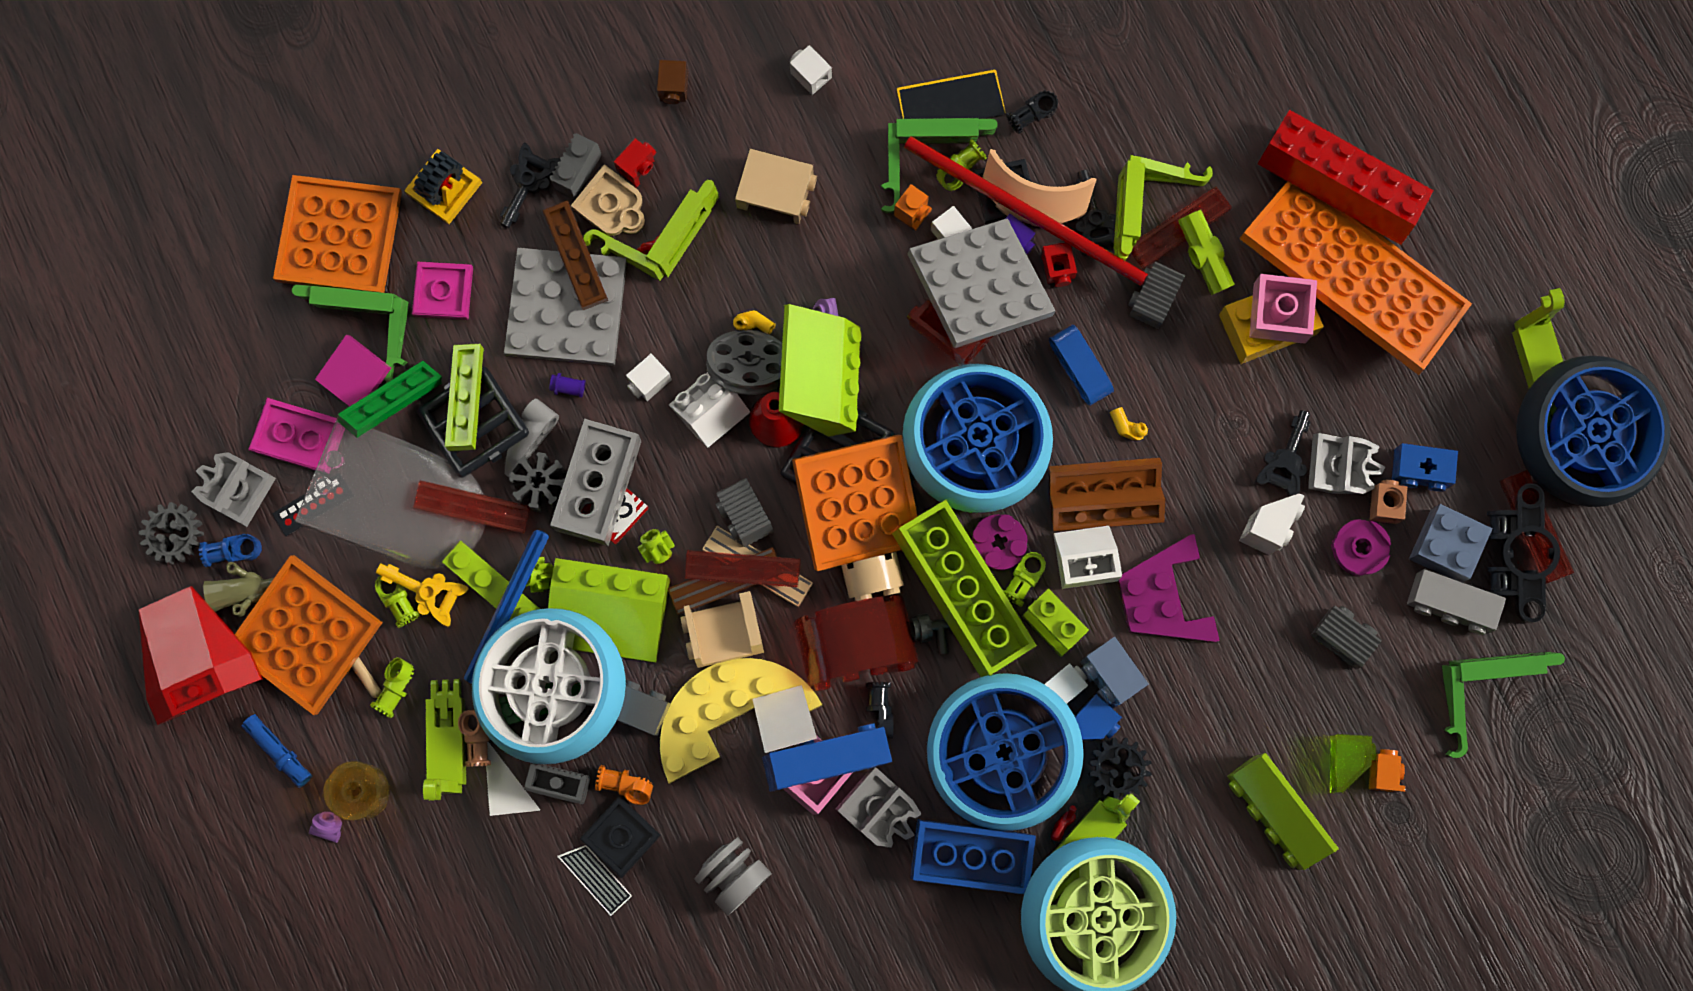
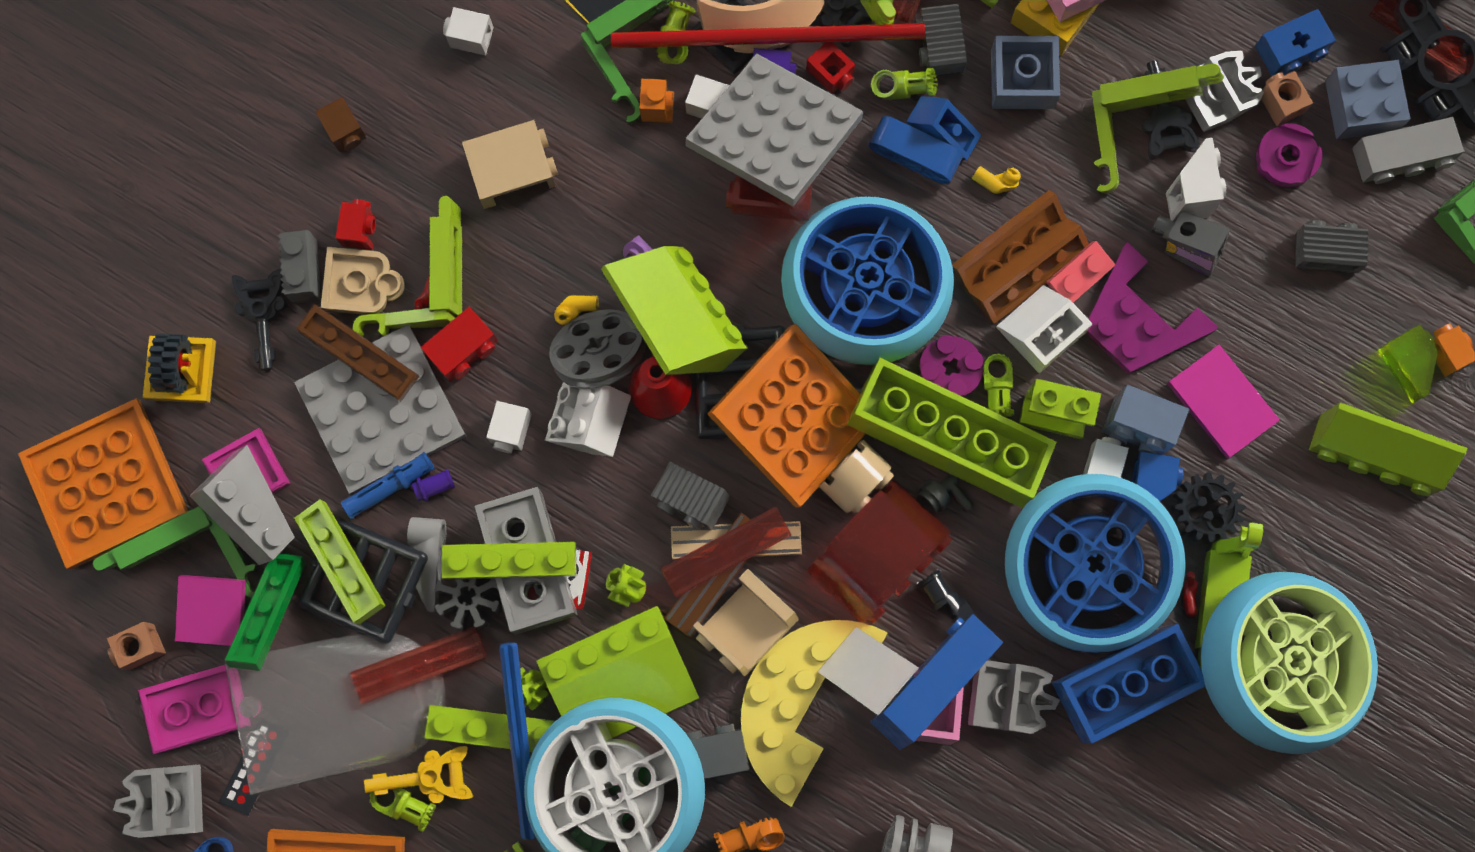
camera: 30 degrees left, 0 degrees up
(295, 370) = (149, 646): none -> nougat brick
(423, 315) = (245, 507): none -> light grey wedge
(543, 365) = (389, 484): none -> blue pin
(582, 473) = (509, 560): none -> lime plate
(652, 296) = (460, 345): none -> red brick
(1107, 311) = (906, 83): none -> lime connector
(1115, 360) = (943, 121): none -> blue slope
(1143, 534) = (1081, 272): none -> coral plate
(1186, 698) = (1223, 401): none -> dark pink tile
(1201, 358) = (1025, 72): none -> sand blue brick
(1242, 564) = (1193, 240): none -> dark grey torso
(1275, 428) = (1139, 93): none -> lime hinge

